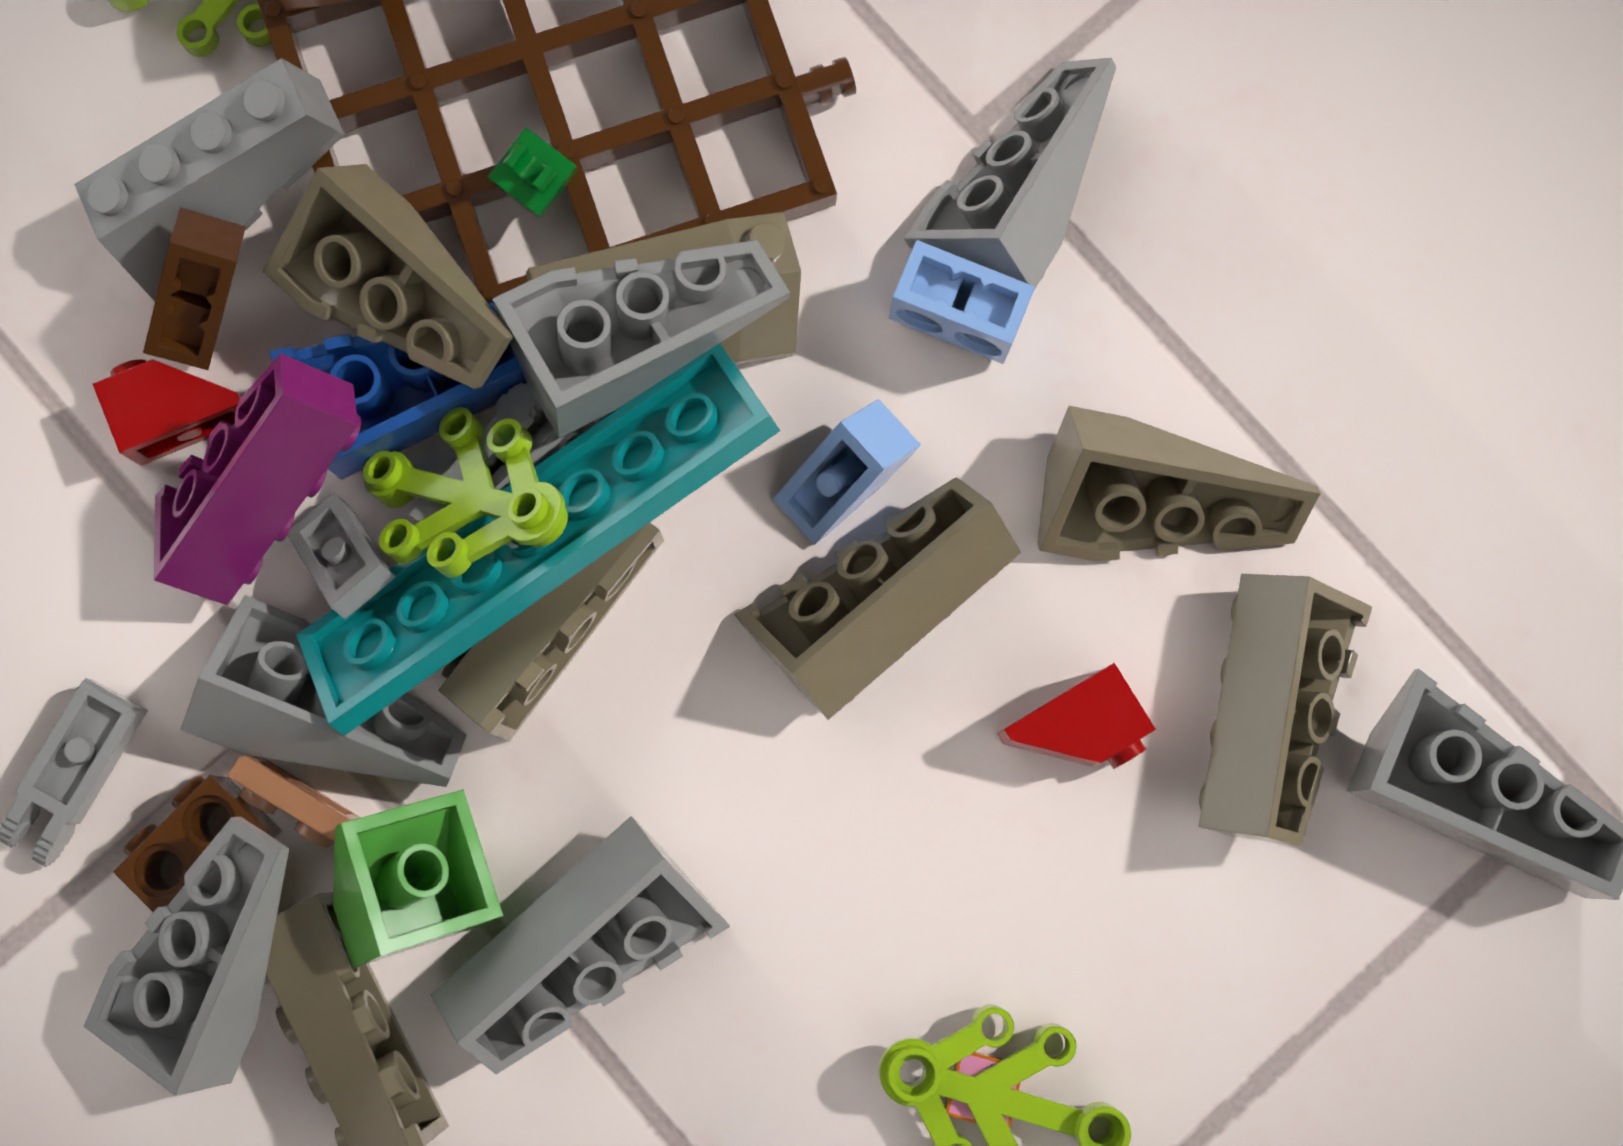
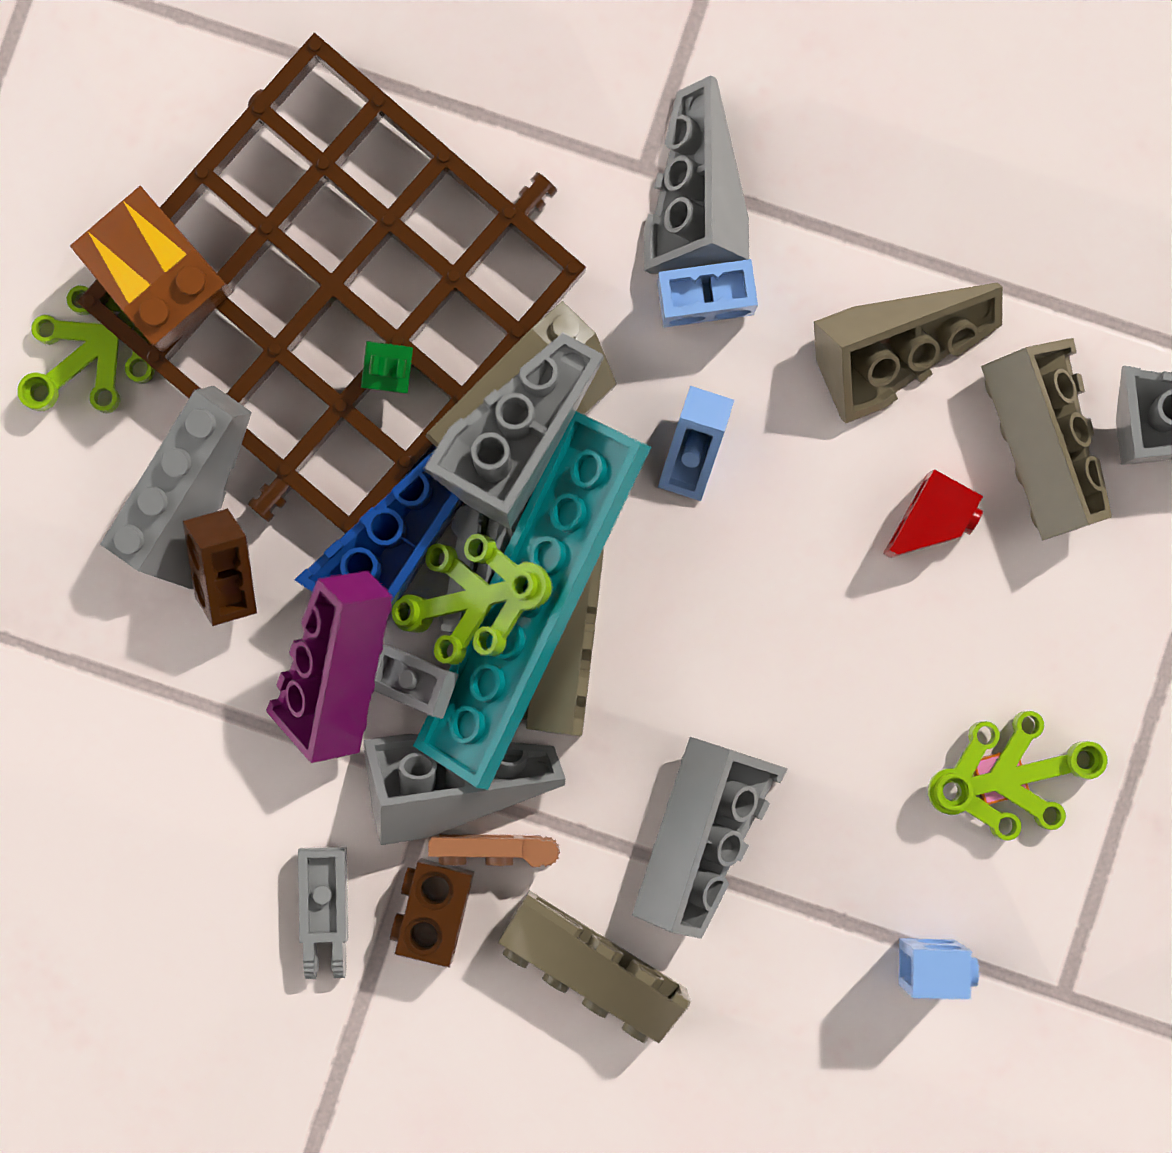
camera: 20 degrees left, 5 degrees up
(161, 408) = (241, 652): red slope -> none
(197, 976) = (484, 984): light grey wedge -> none
(378, 267) = (332, 487): dark tan wedge -> none
(410, 878) = (581, 852): bright green slope -> none
(881, 595) = (763, 510): dark tan wedge -> none

